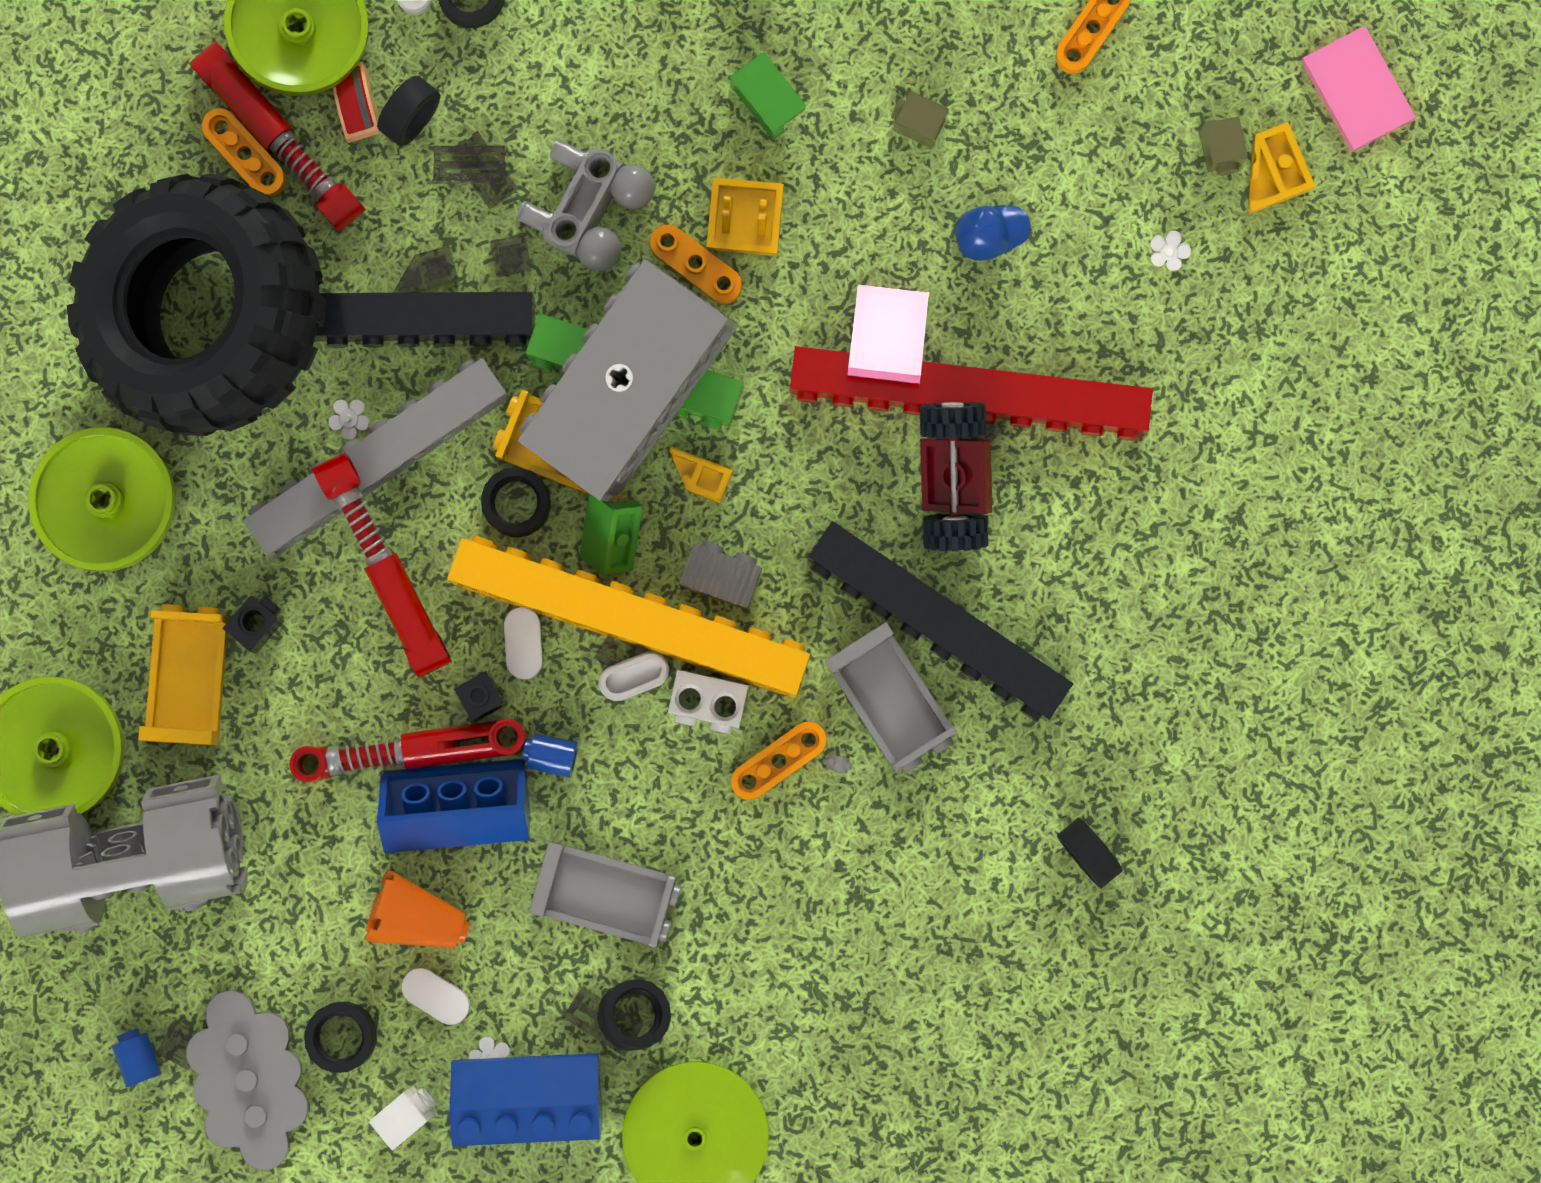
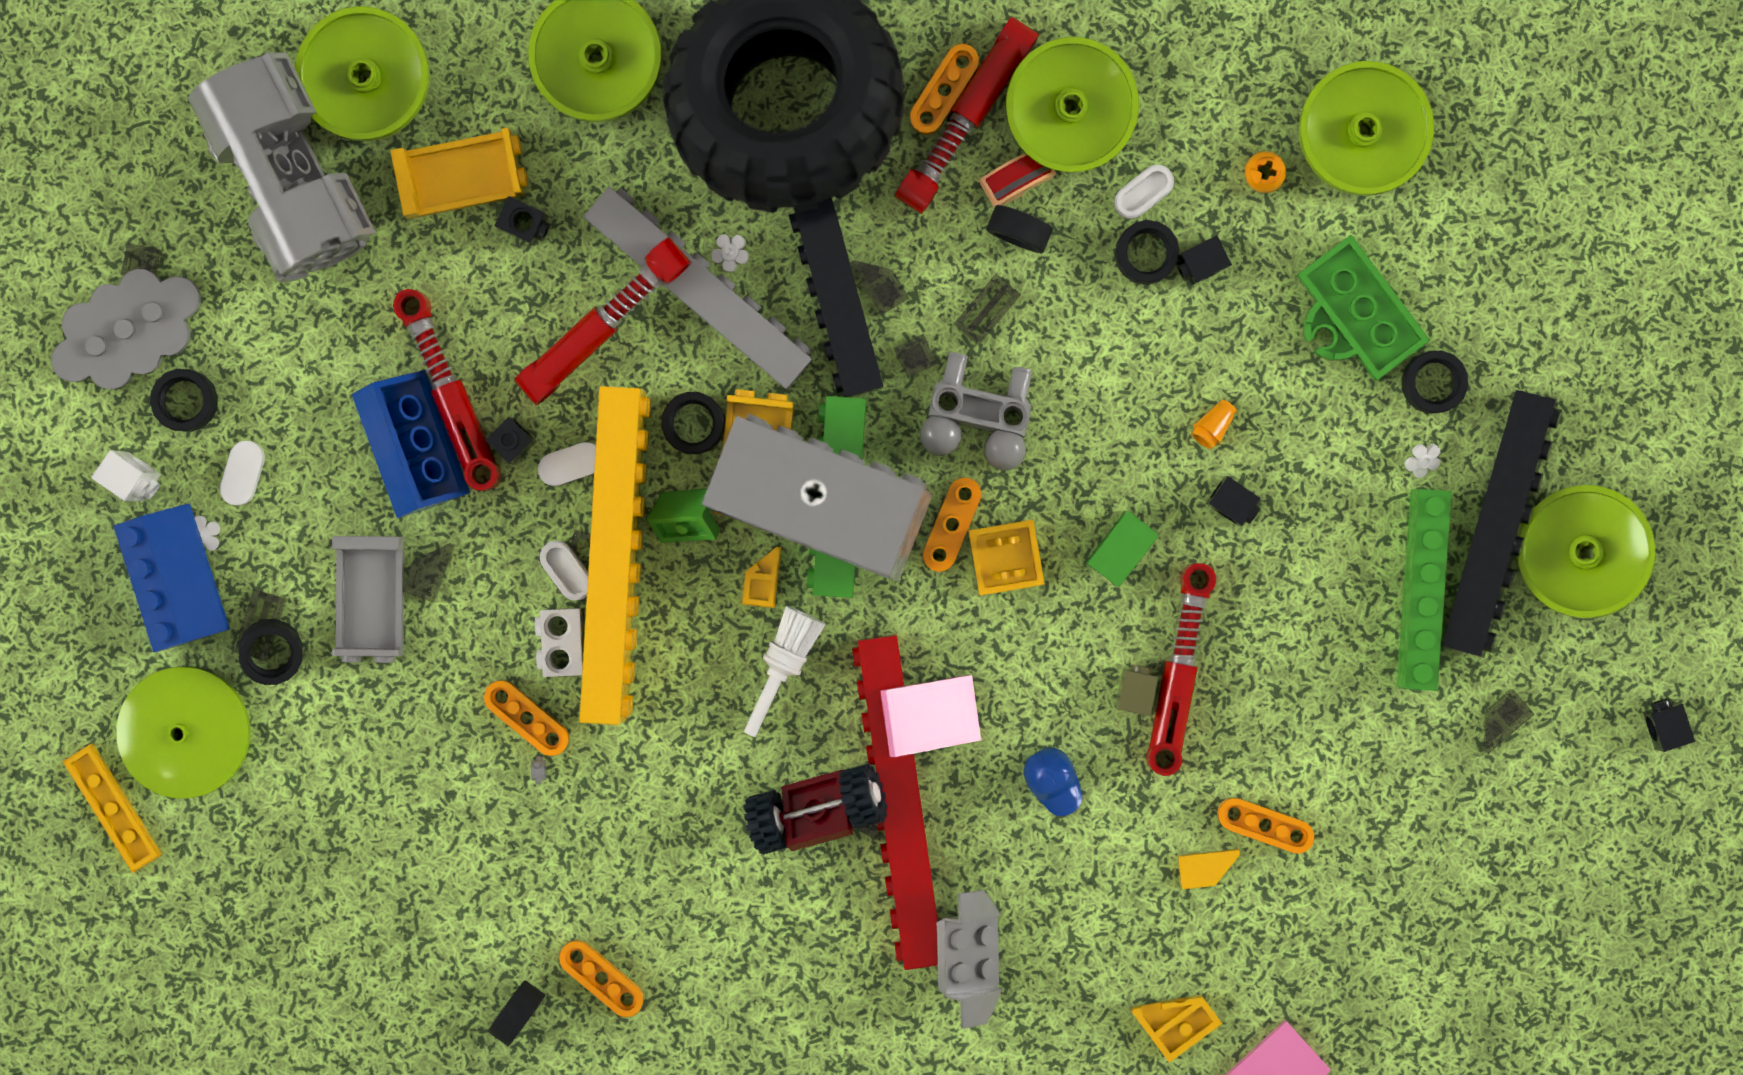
camera: 75 degrees right, 5 degrees up
(135, 1057) = (117, 227): blue brick -> none
(413, 916) = (303, 435): orange cone -> none
(469, 178) = (994, 324): clear smoke tile -> none
(550, 755) = (477, 515): blue brick -> none
(597, 825) = (428, 573): none -> clear smoke tile
(721, 575) = (675, 623): light grey brick -> none
(788, 470) = (785, 658): none -> white piece
(891, 699) = (607, 803): light grey panel -> none
(912, 70) = (1180, 673): none -> red piece
(940, 622) = (686, 827): black brick -> none
(1092, 751) = (609, 992): none -> light orange plate
(1122, 100) = (1205, 868): none -> yellow tile
(1151, 360) = (970, 957): none -> light grey piece
(1169, 250) = (1076, 946): white plant -> none
(1223, 146) = (1184, 971): olive brick -> none

